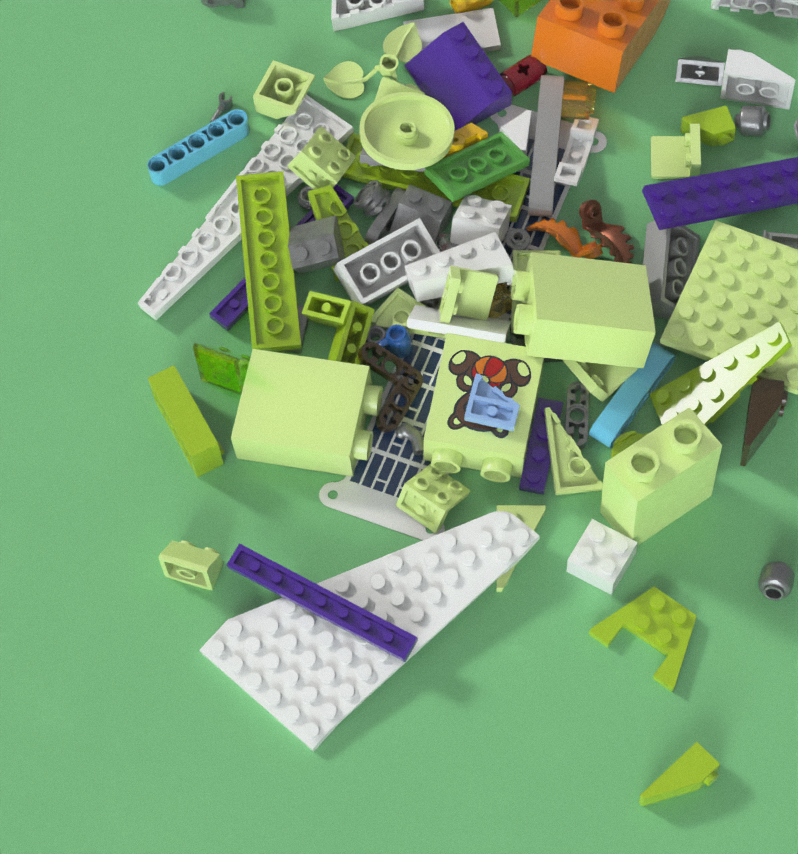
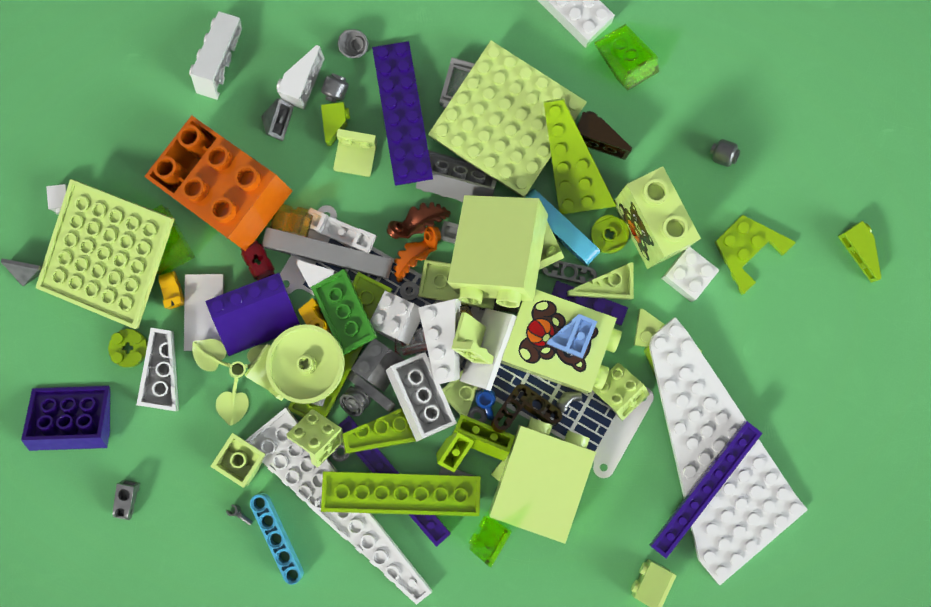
camera: 90 degrees left, 20 degrees up
(186, 421) = (534, 576): lime brick -> none
(315, 245) = (395, 453): flat silver slope -> none

